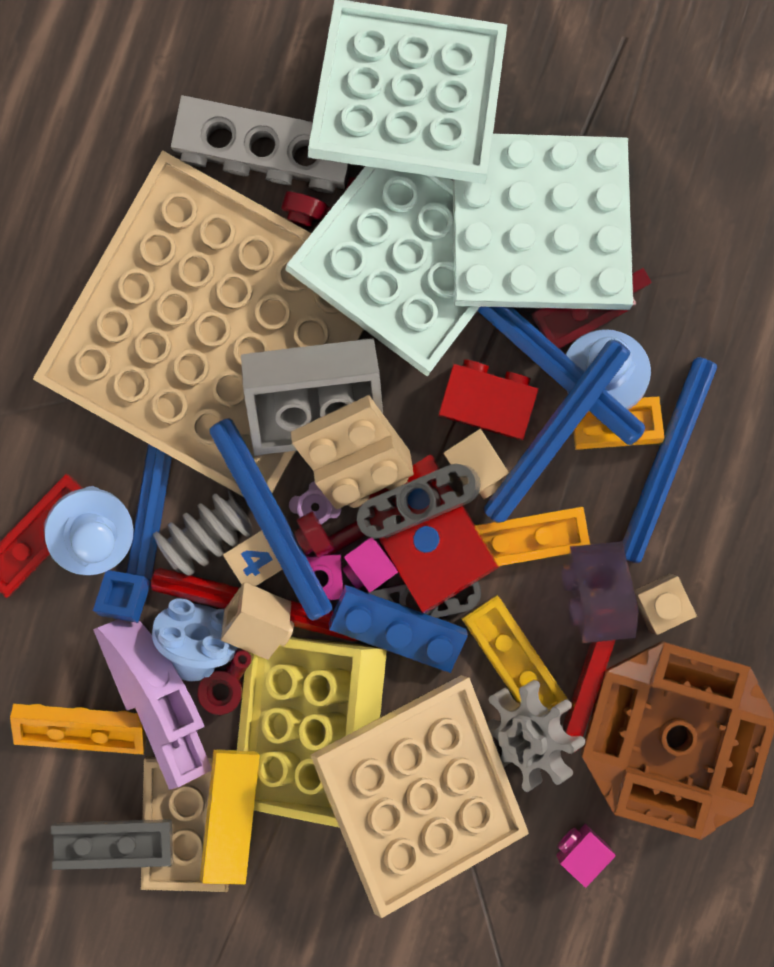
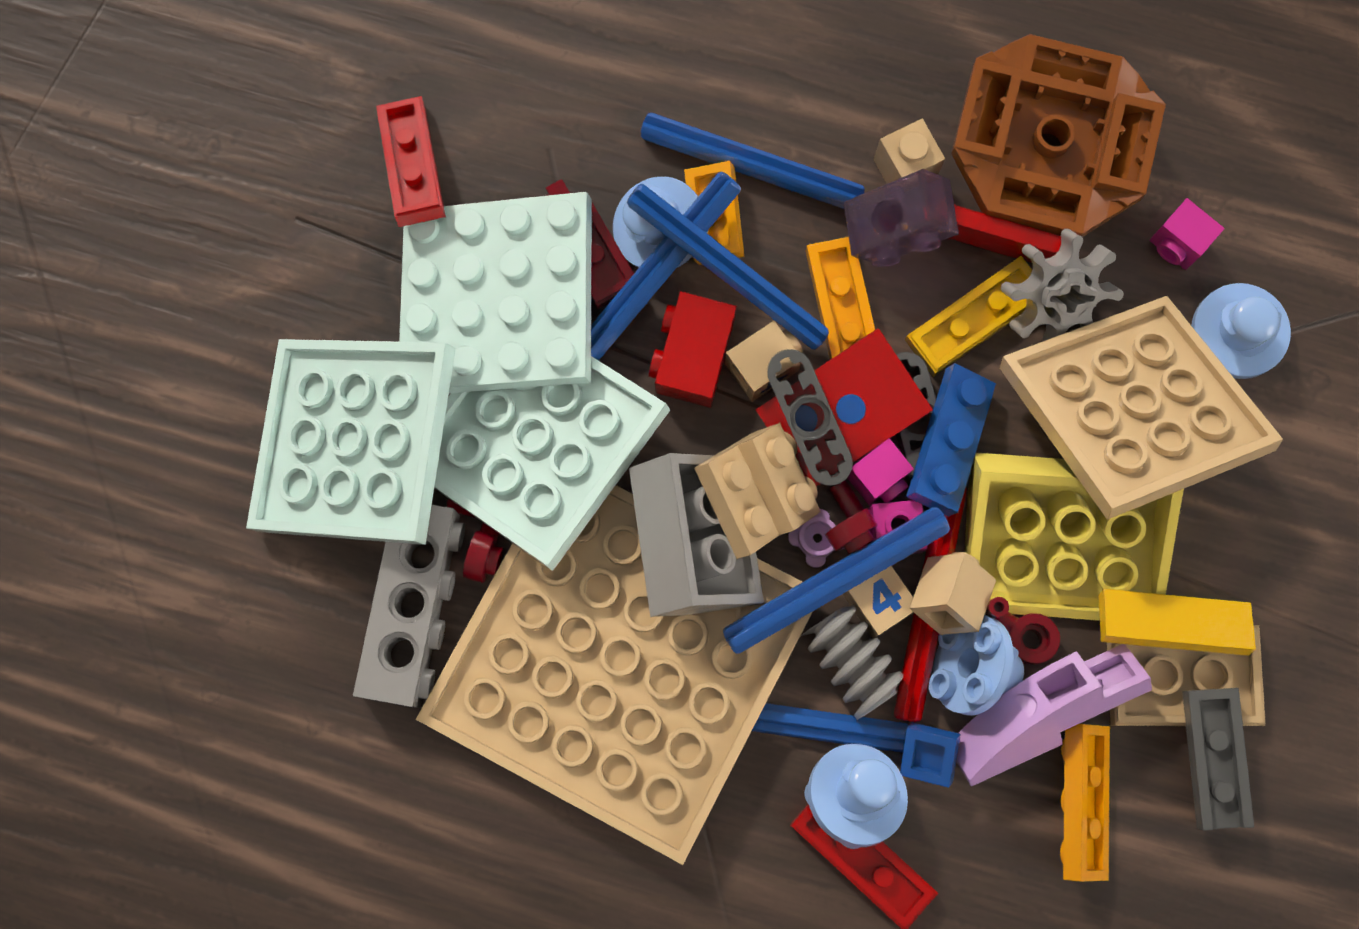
camera: 90 degrees left, 10 degrees down
(495, 899) = (1243, 328): none -> light blue plate
(672, 142) = (410, 162): none -> tile

